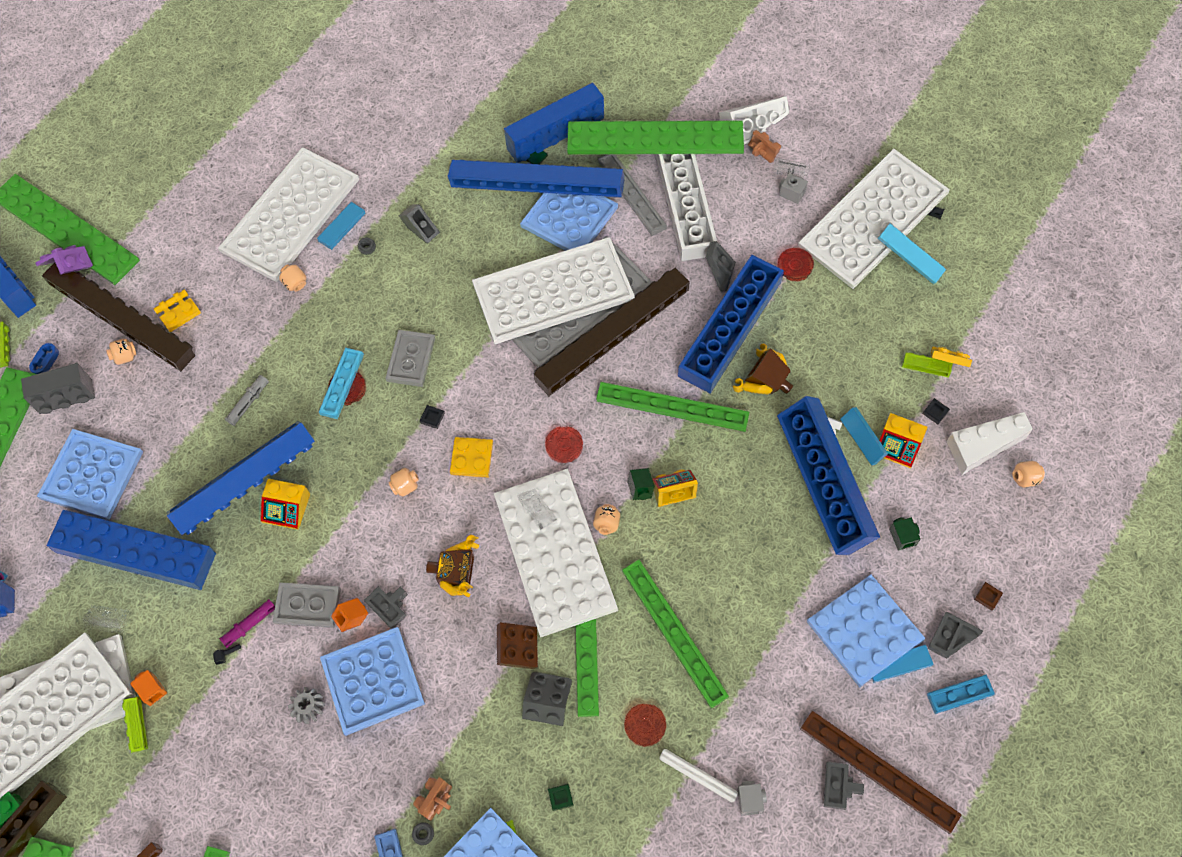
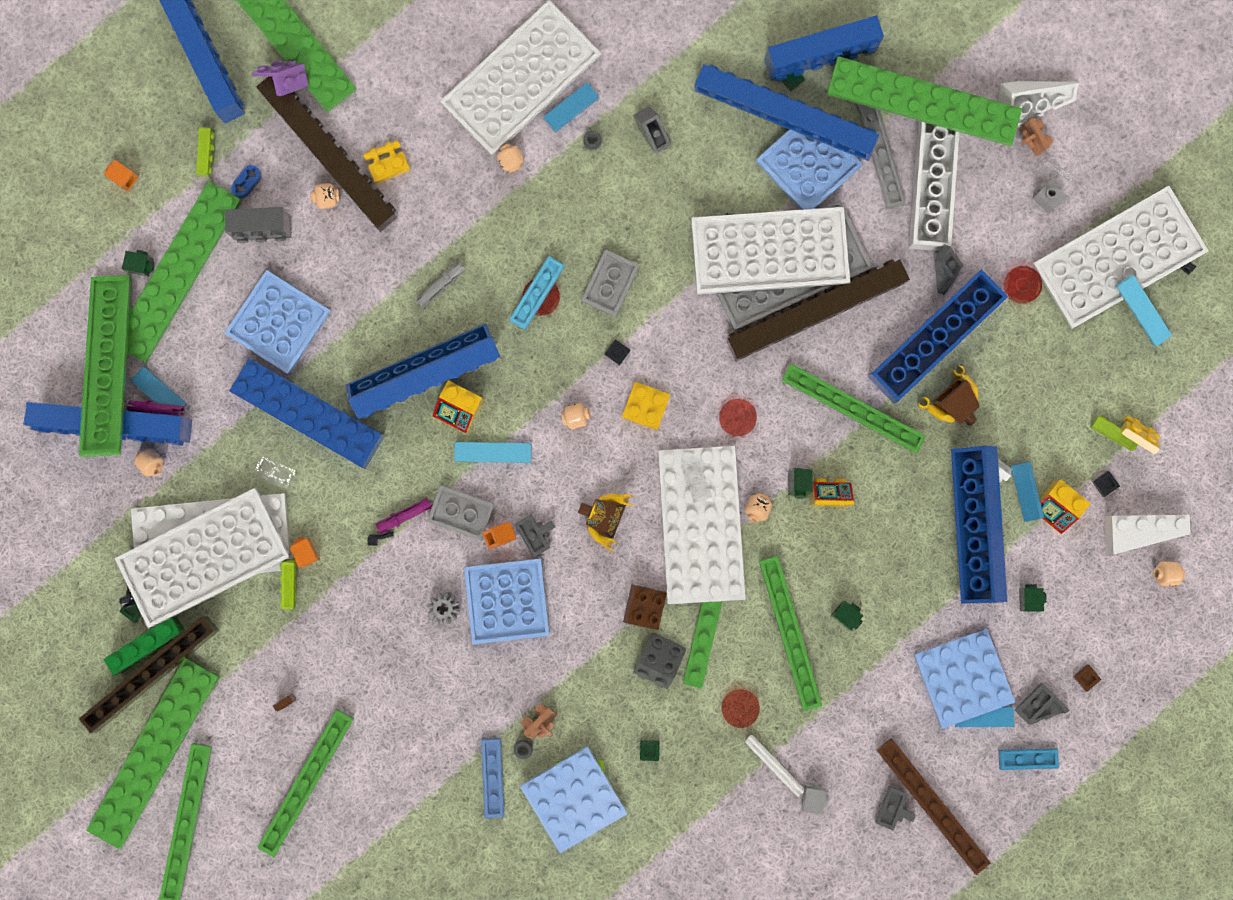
camera: 10 degrees right, 20 degrees up
(328, 539) = (492, 452): none -> medium azure tile
(727, 598) = (848, 615): none -> dark green brick

